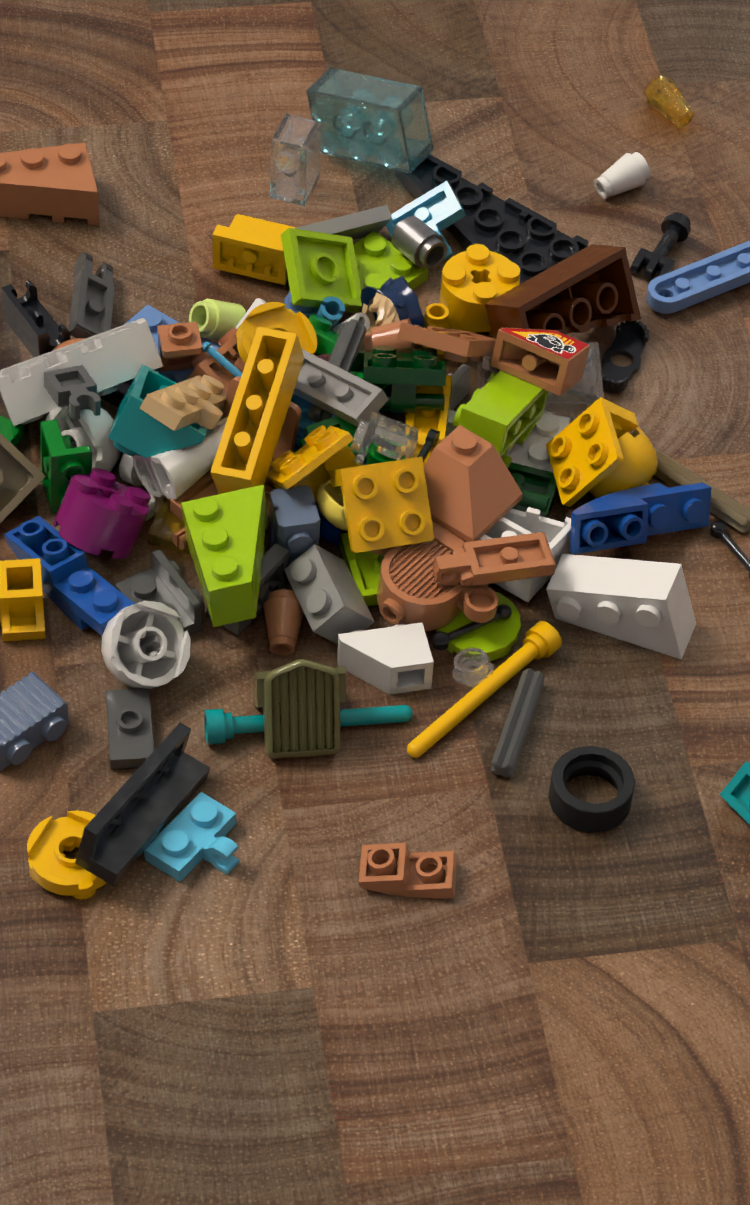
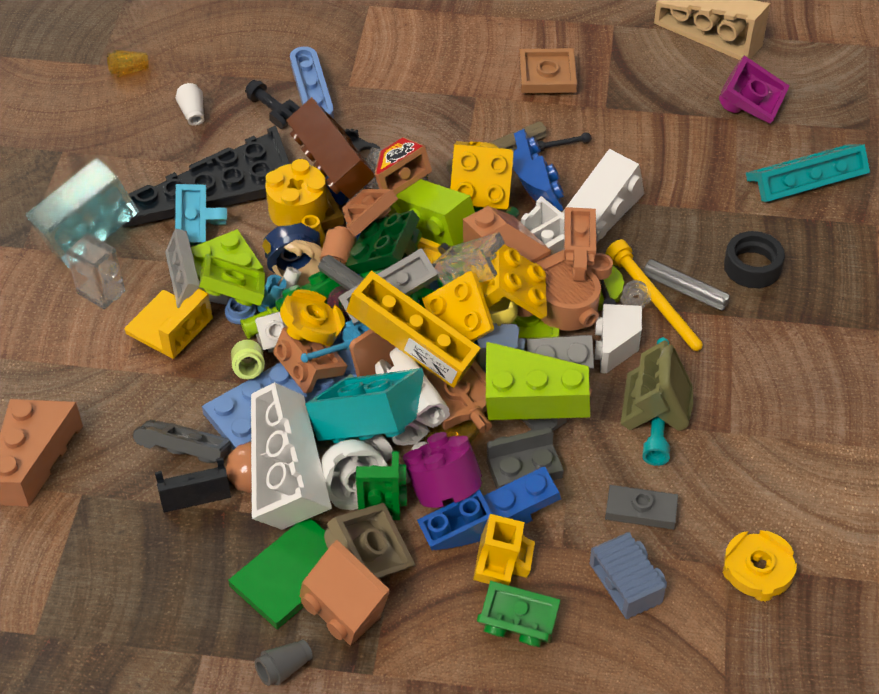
camera: 70 degrees left, 0 degrees up
(74, 389) = (327, 447): dark grey plate -> none
(141, 808) = (736, 506): black fence -> none
(145, 645) = (582, 472): white cylinder -> none
(178, 345) = (289, 373): nougat bracket -> none
(187, 402) = (383, 373): tan hinge -> none
(195, 836) = (754, 488): medium azure plate -> none
(400, 873) = (804, 371): nougat slope -> none
(419, 242) = (223, 220): flat silver brick -> none

